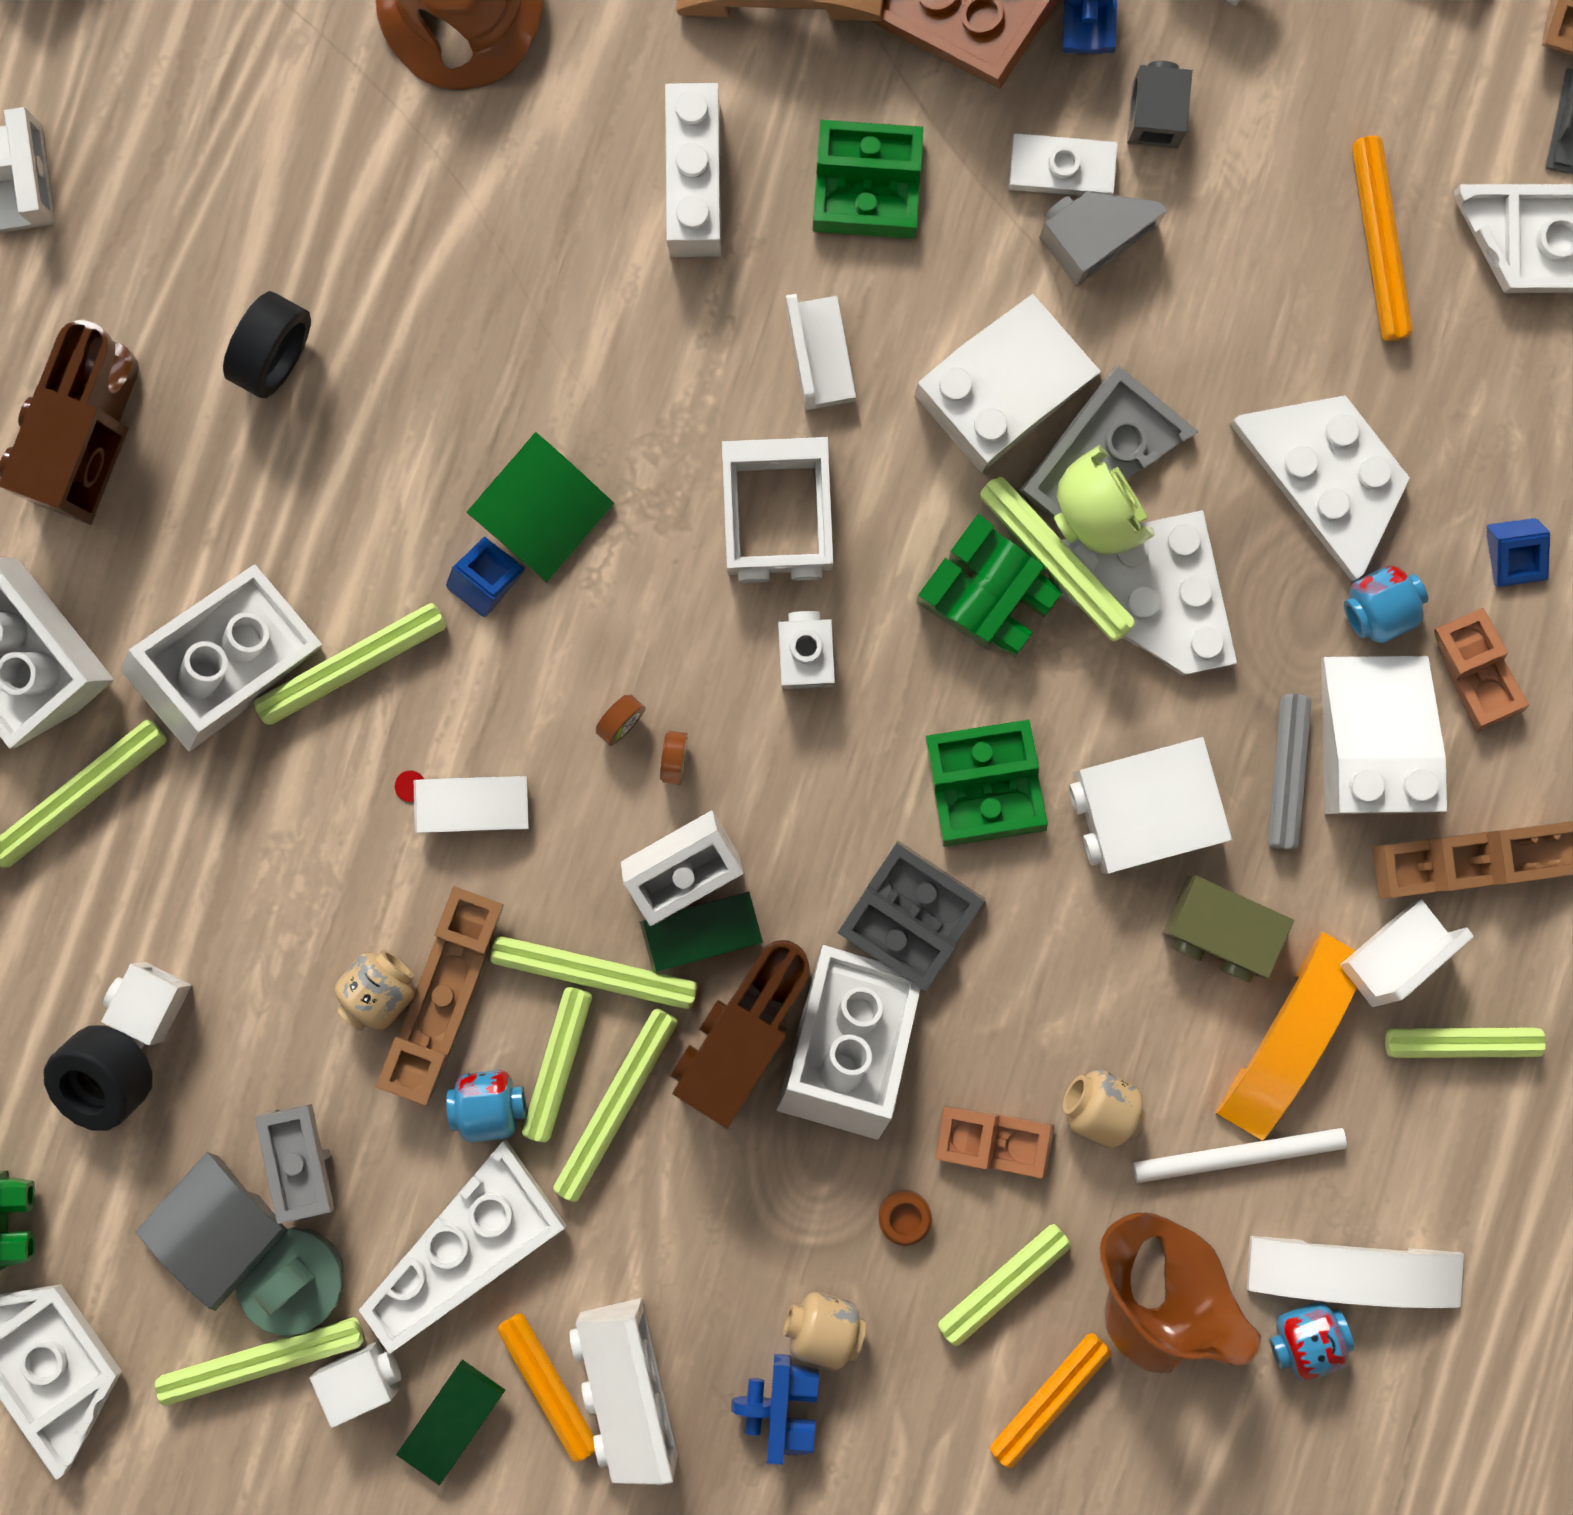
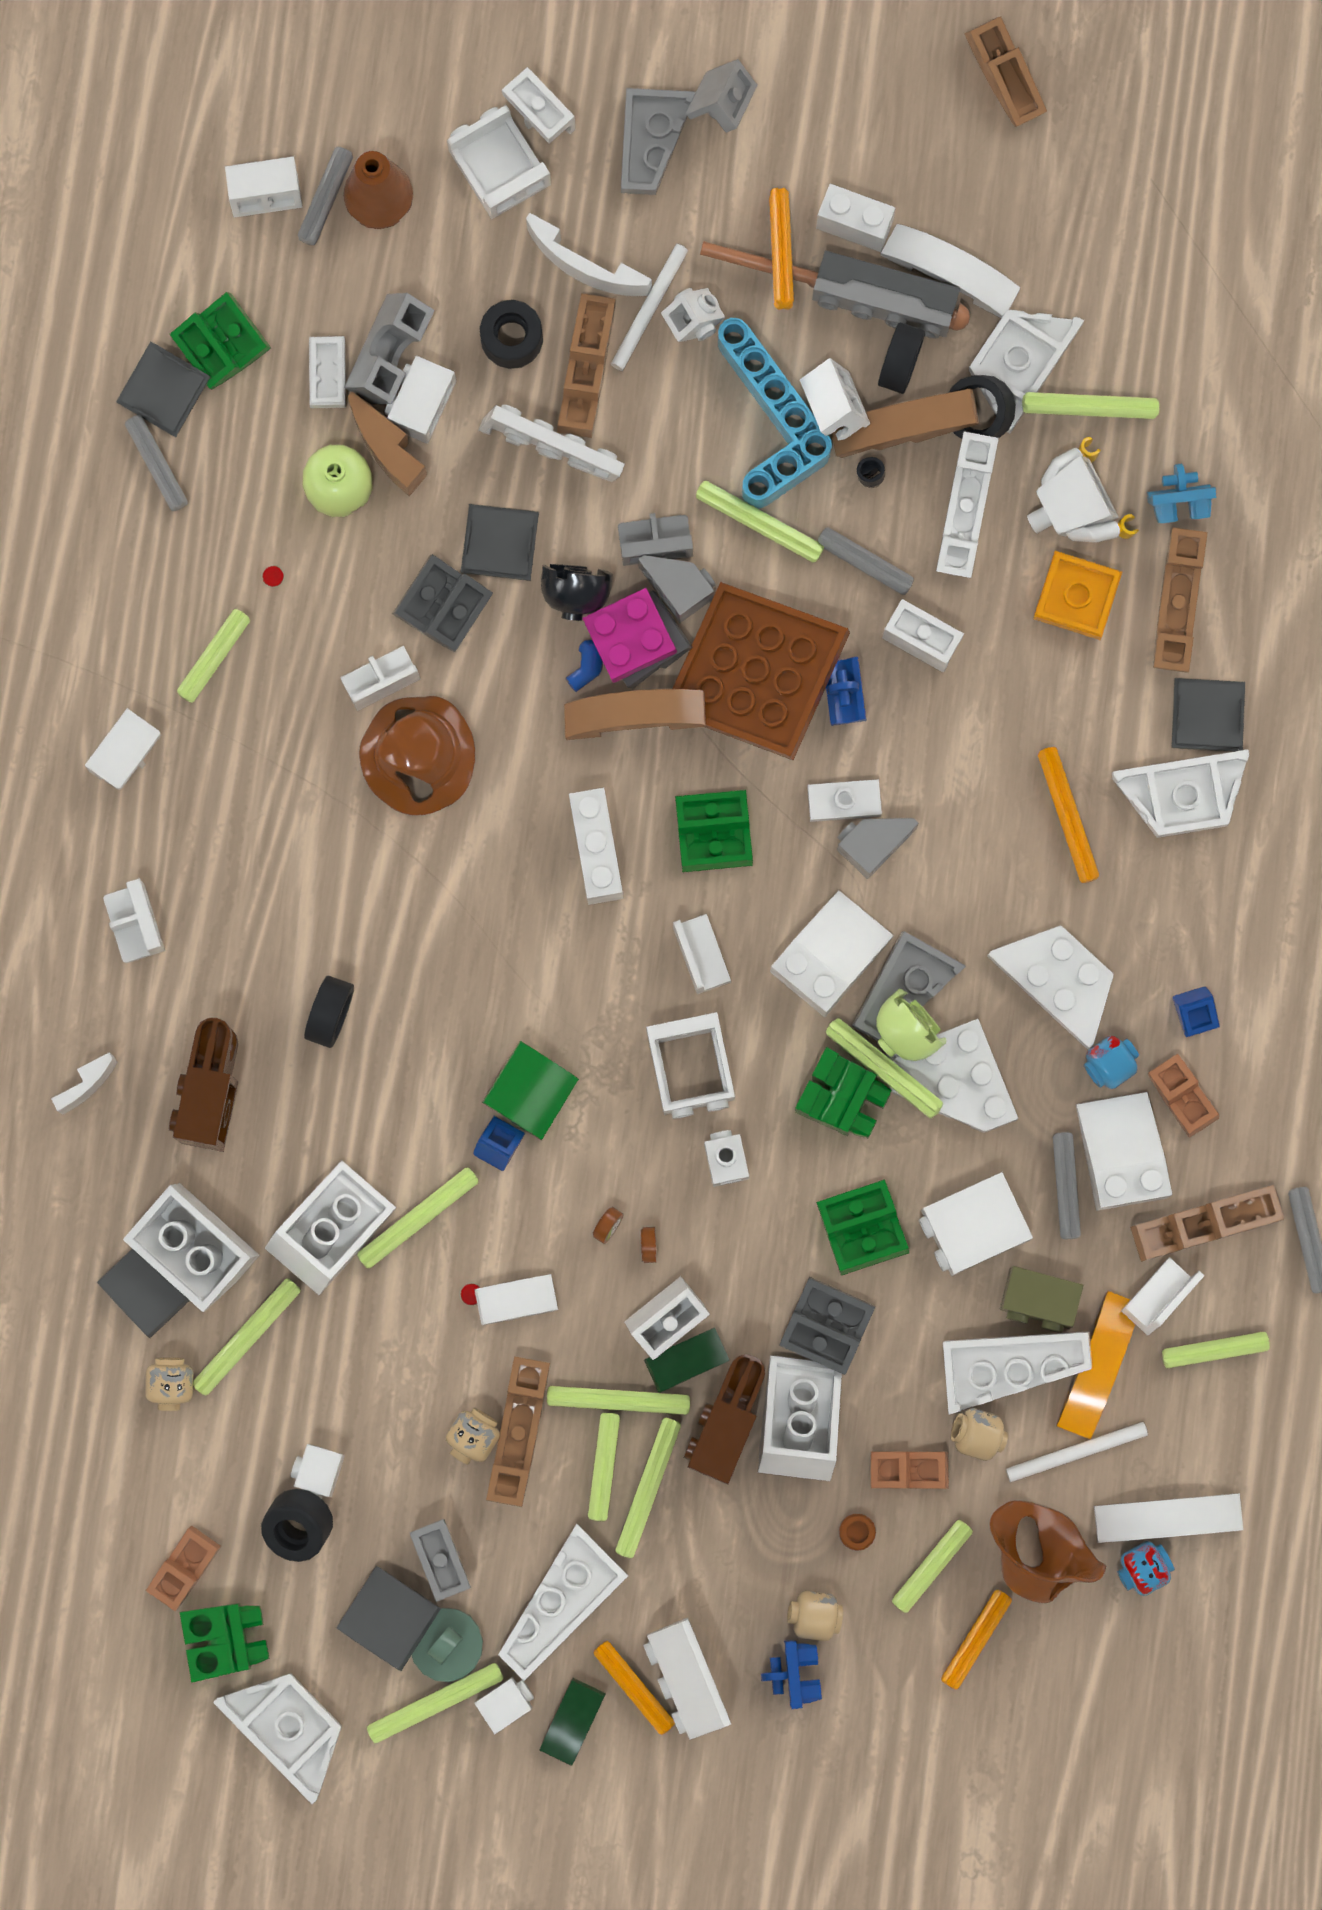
camera: 10 degrees left, 5 degrees down
(485, 1106) = (560, 1502): dark azure head -> none
(1152, 1016) = (1003, 1366): none -> white wing
(1159, 105) = (902, 750): dark grey brick -> none

